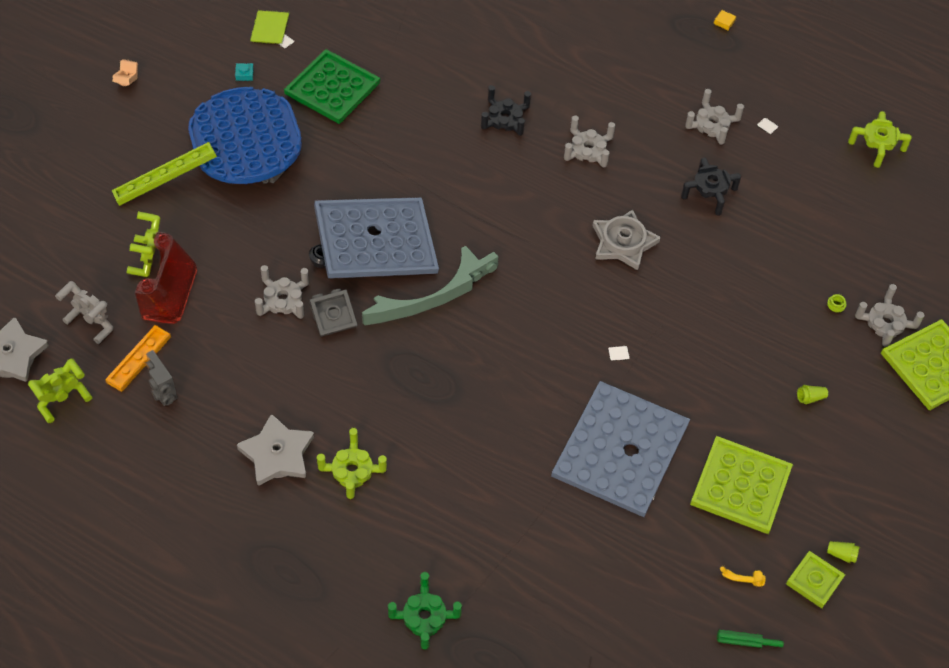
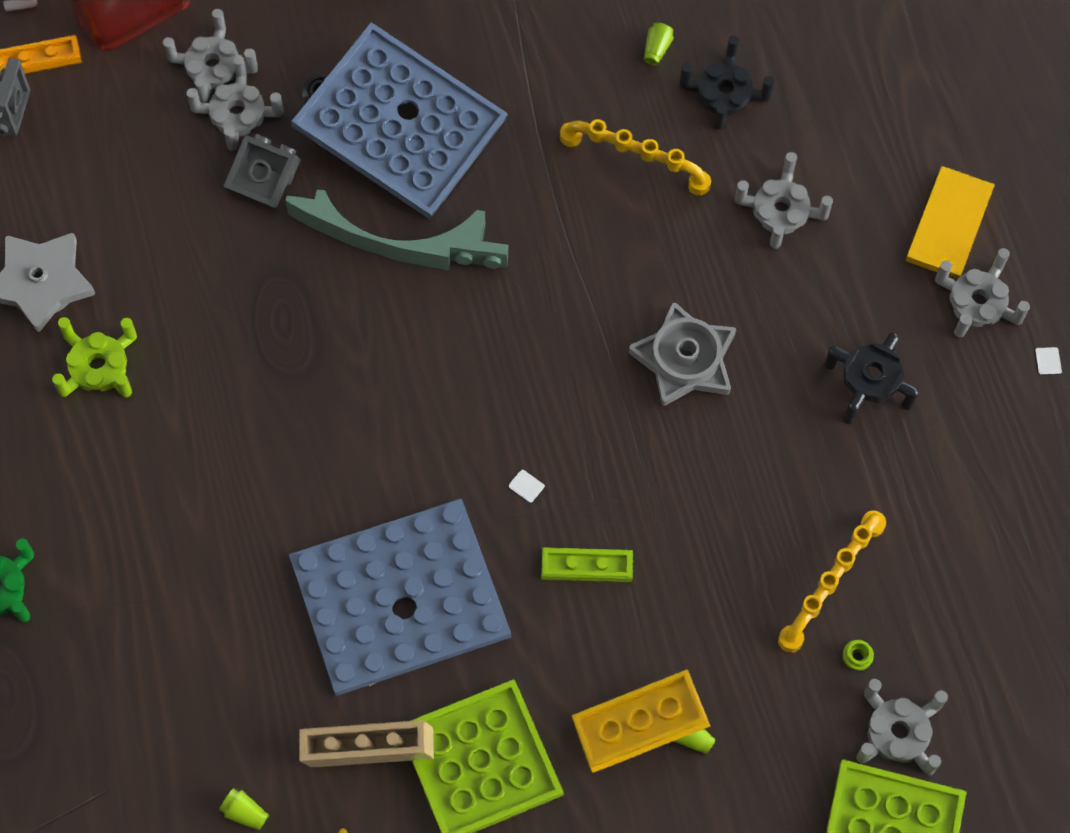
camera: 45 degrees right, 10 degrees up
(238, 276) = (206, 49): none -> light grey plate
(452, 115) = (658, 41): none -> lime cone
(510, 162) = (571, 136): none -> yellow bar
(664, 99) = (950, 221): none -> yellow tile
(666, 602) = (243, 809): none -> lime cone
(685, 363) = (587, 564): none -> lime tile
(691, 517) = (366, 743): none -> tan brick
(782, 247) = (871, 525): none -> yellow bar
(789, 405) = (640, 721): none -> yellow tile

